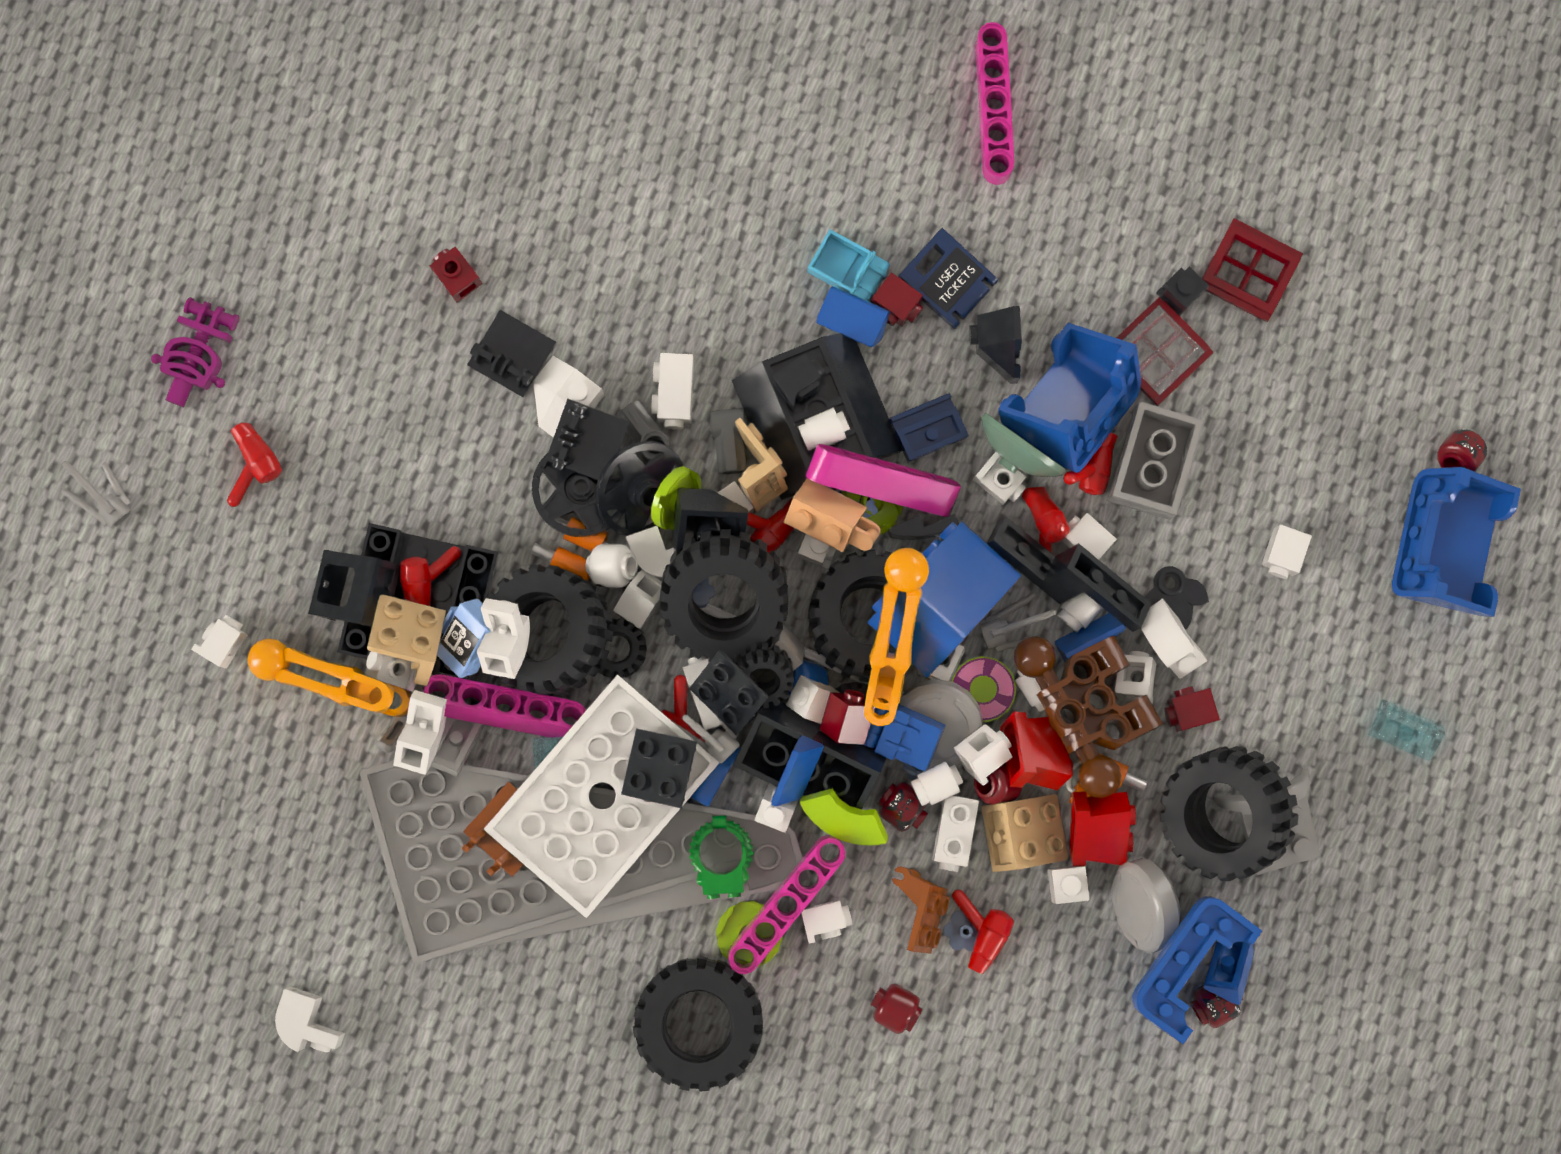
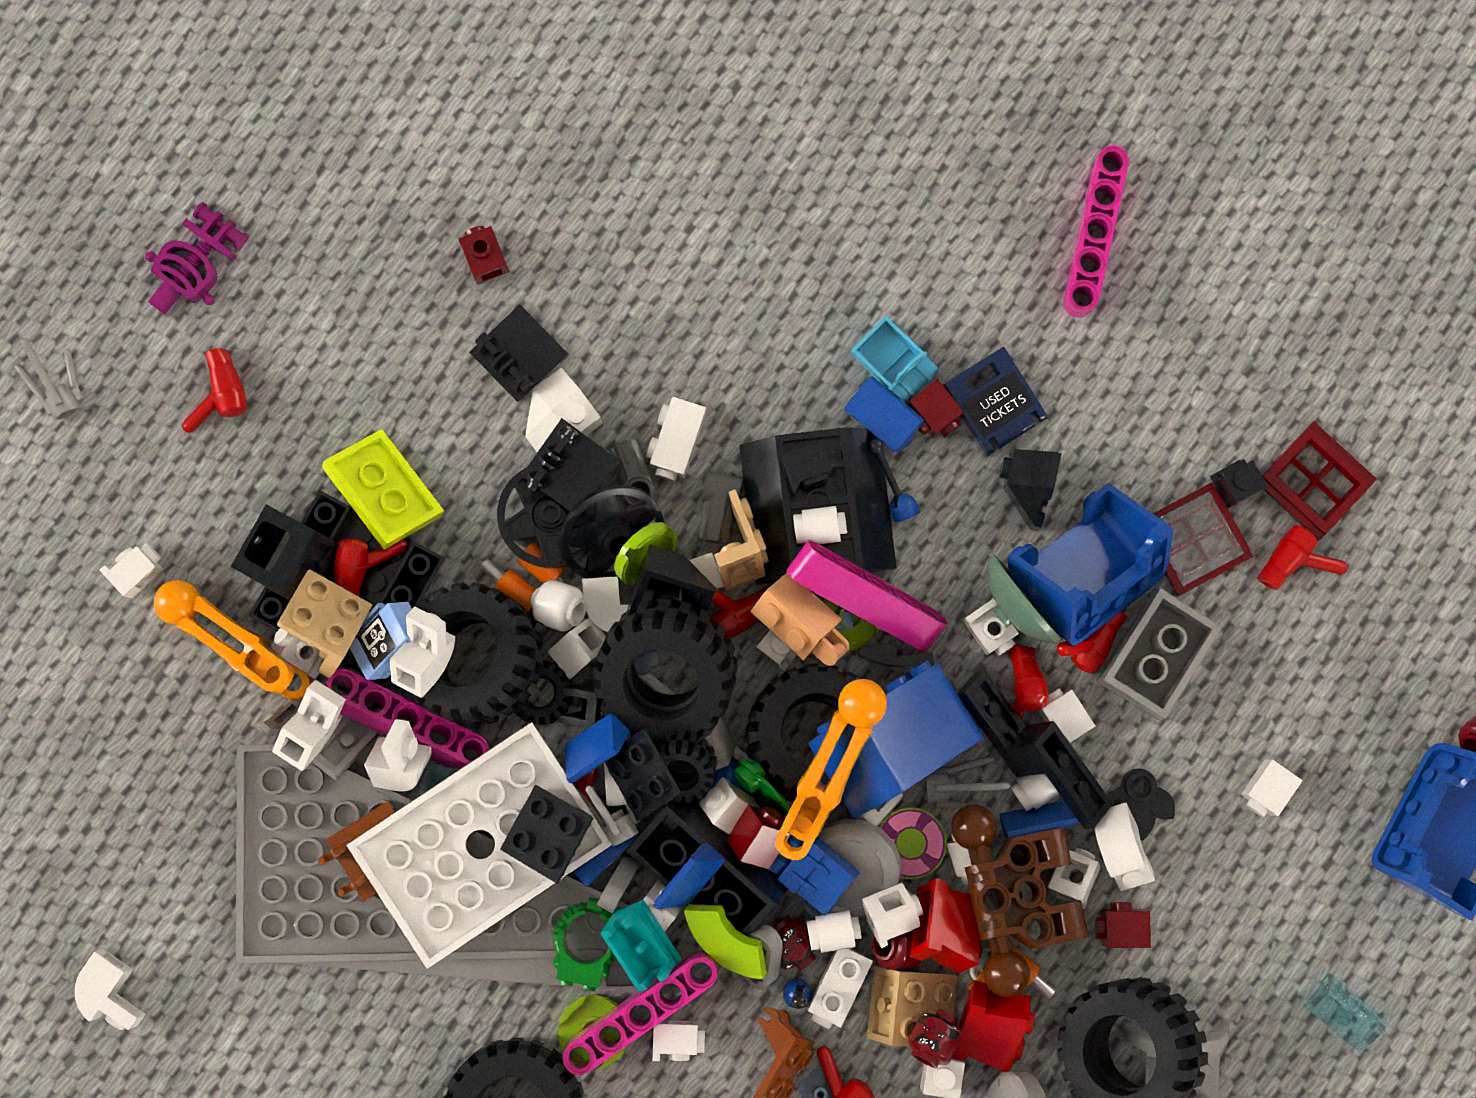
camera: 15 degrees right, 0 degrees up
(425, 507) = (382, 489): none -> neon yellow plate
(507, 742) = (397, 759): none -> white brick
(667, 650) = (590, 709): none -> black window
(679, 680) = (594, 746): none -> blue slope
(734, 796) = (618, 883): none -> light grey beam
(769, 843) = (640, 945): none -> teal hinge
(828, 669) = (753, 779): none -> green plate
(889, 820) = (772, 953): none -> light grey beam
(891, 392) = (902, 505): none -> hinge
(920, 850) = (796, 996): none -> blue hinge
(928, 427) = (930, 552): dark blue plate -> none
(1053, 852) = (935, 1038): none -> dark red head
(1247, 338) = (1293, 551): none -> red piece

